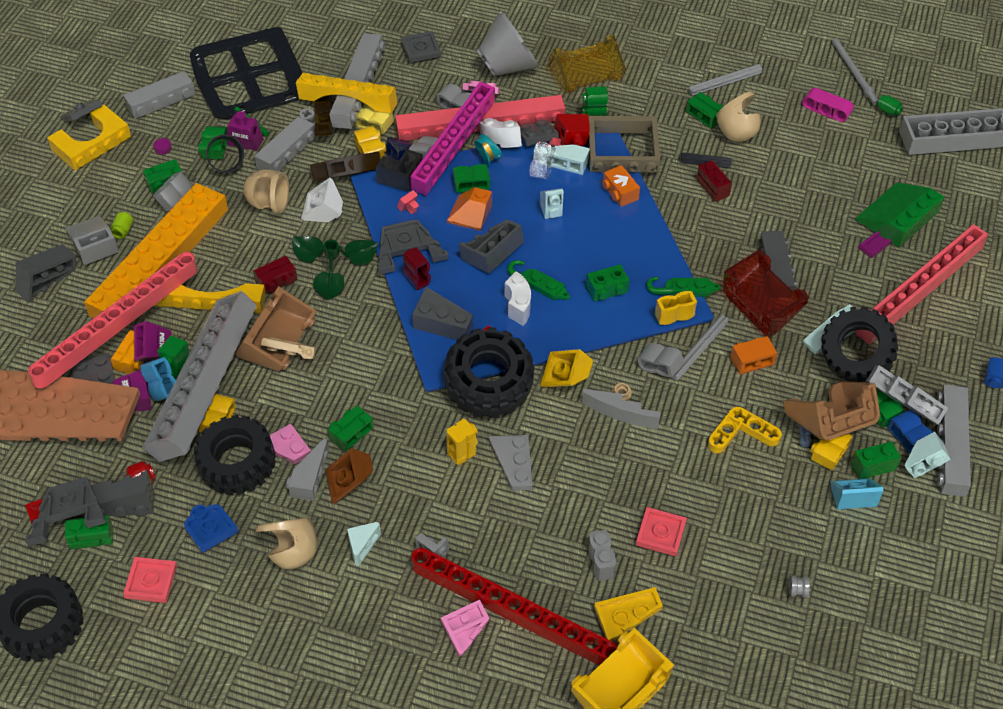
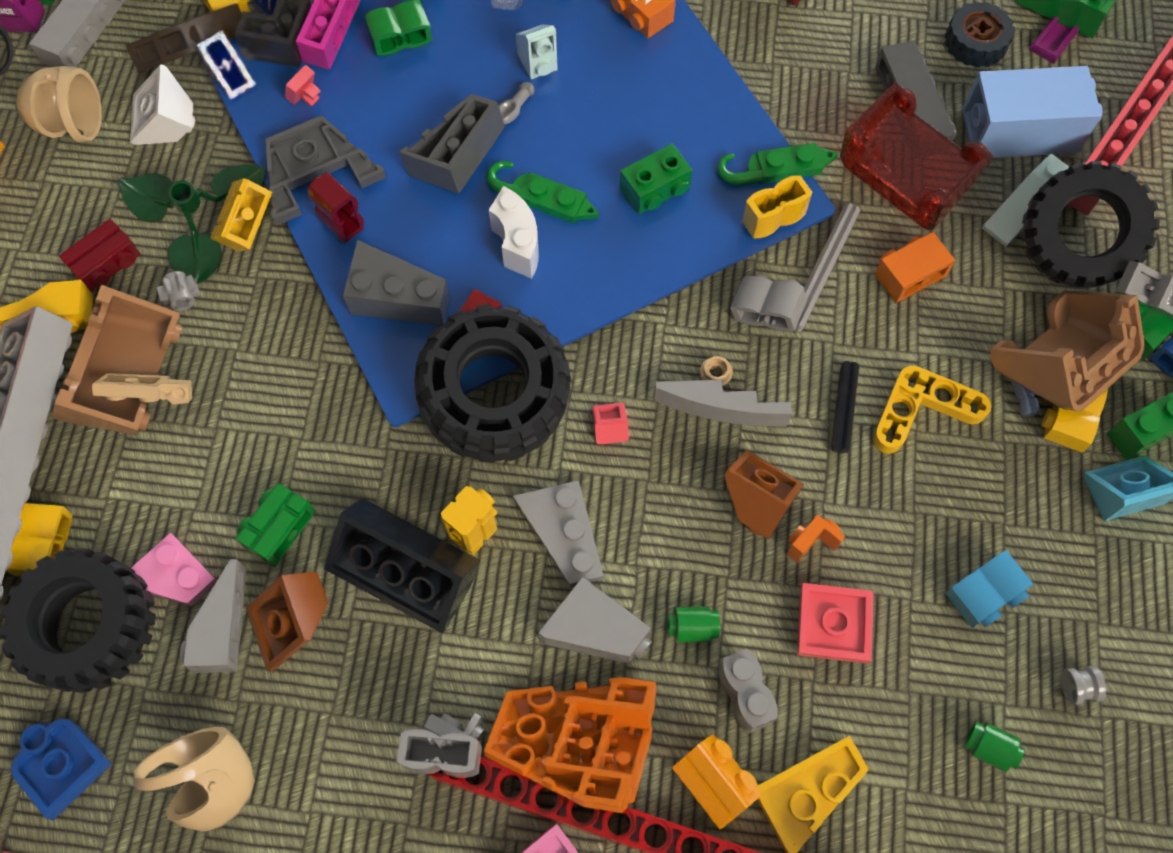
camera: 10 degrees left, 15 degrees up
(317, 299) = (178, 291): none -> light grey gear
(360, 265) = (241, 215): none -> yellow brick
(362, 540) = (330, 743): light aqua slope -> none
(365, 184) = (224, 65): none -> clear blue slope
(417, 460) = (400, 564): none -> black slope
(421, 545) = (428, 753): none -> light grey brick
(471, 208) = (408, 81): orange slope -> none
(505, 561) = (578, 740): none -> orange wedge
(522, 509) = (596, 626): none -> light grey slope
(528, 233) = (511, 108): none -> light grey piece
(553, 410) = (610, 423): none -> coral slope
(566, 368) = (618, 348): yellow slope -> none
(574, 594) = (717, 780): none -> light orange brick
(578, 518) = (693, 624): none -> green brick
(632, 458) = (760, 493): none -> dark orange slope
(658, 483) = (819, 528): none -> orange bracket
(694, 423) = (845, 407): none -> black axle
(738, 607) = (994, 746): none -> green brick
(756, 529) = (989, 589): none -> dark azure brick
(826, 234) = (979, 34): none -> black wheel
(844, 280) = (1032, 111): none -> light blue brick

